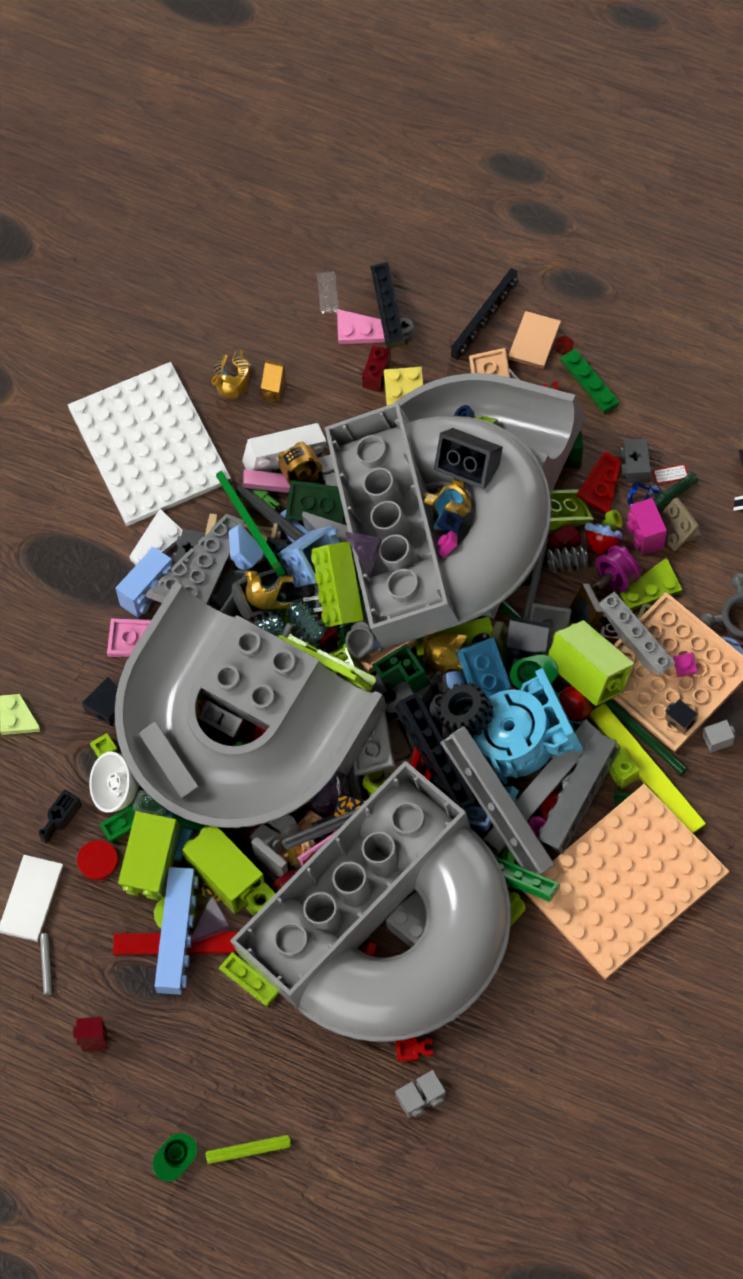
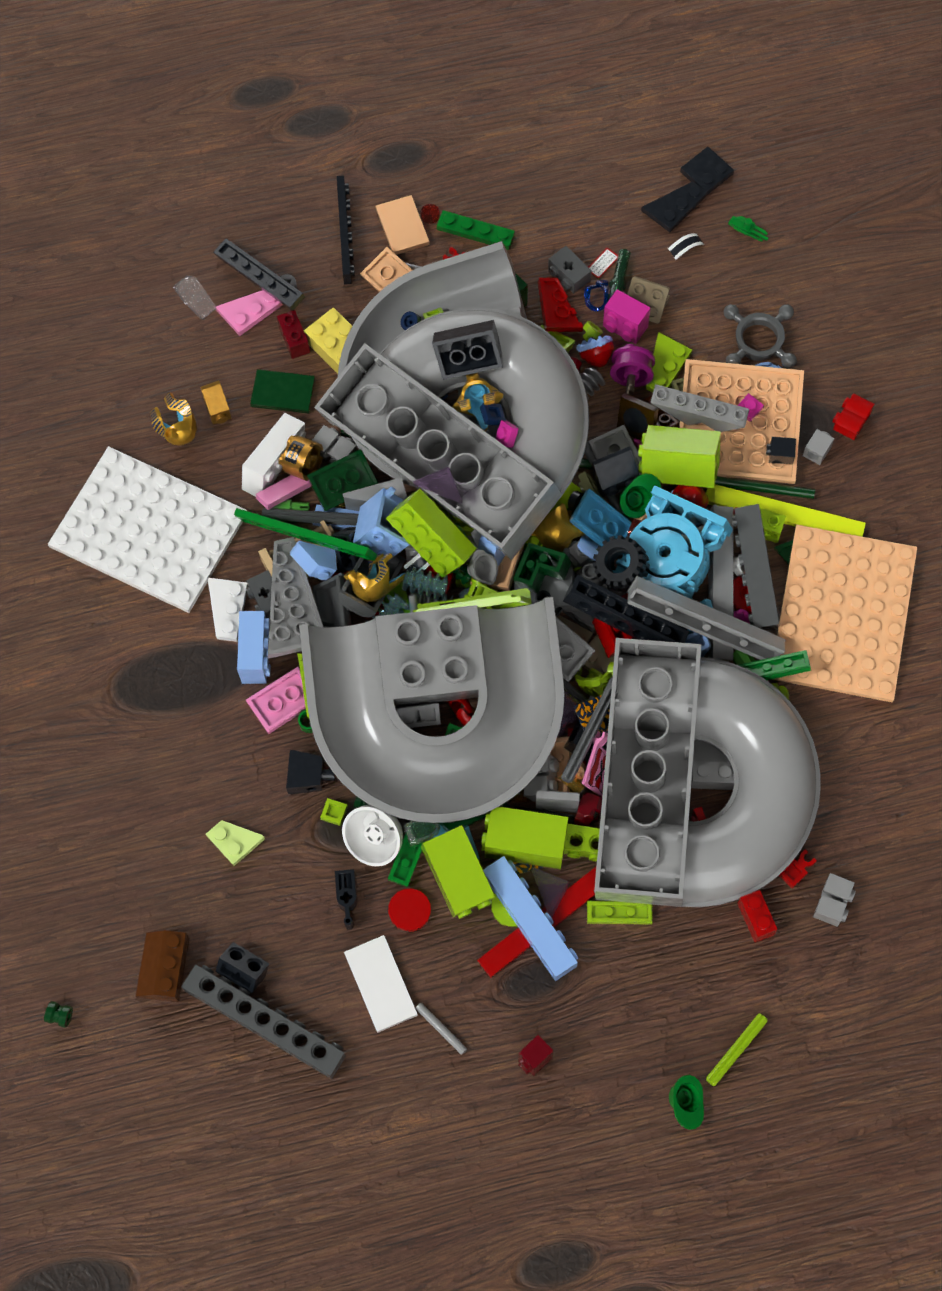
camera: 40 degrees left, 5 degrees up
(169, 760) = (408, 781): light grey tile -> none
(331, 403) = (282, 391): none -> dark green tile
(349, 1060) = (757, 916): none -> red brick

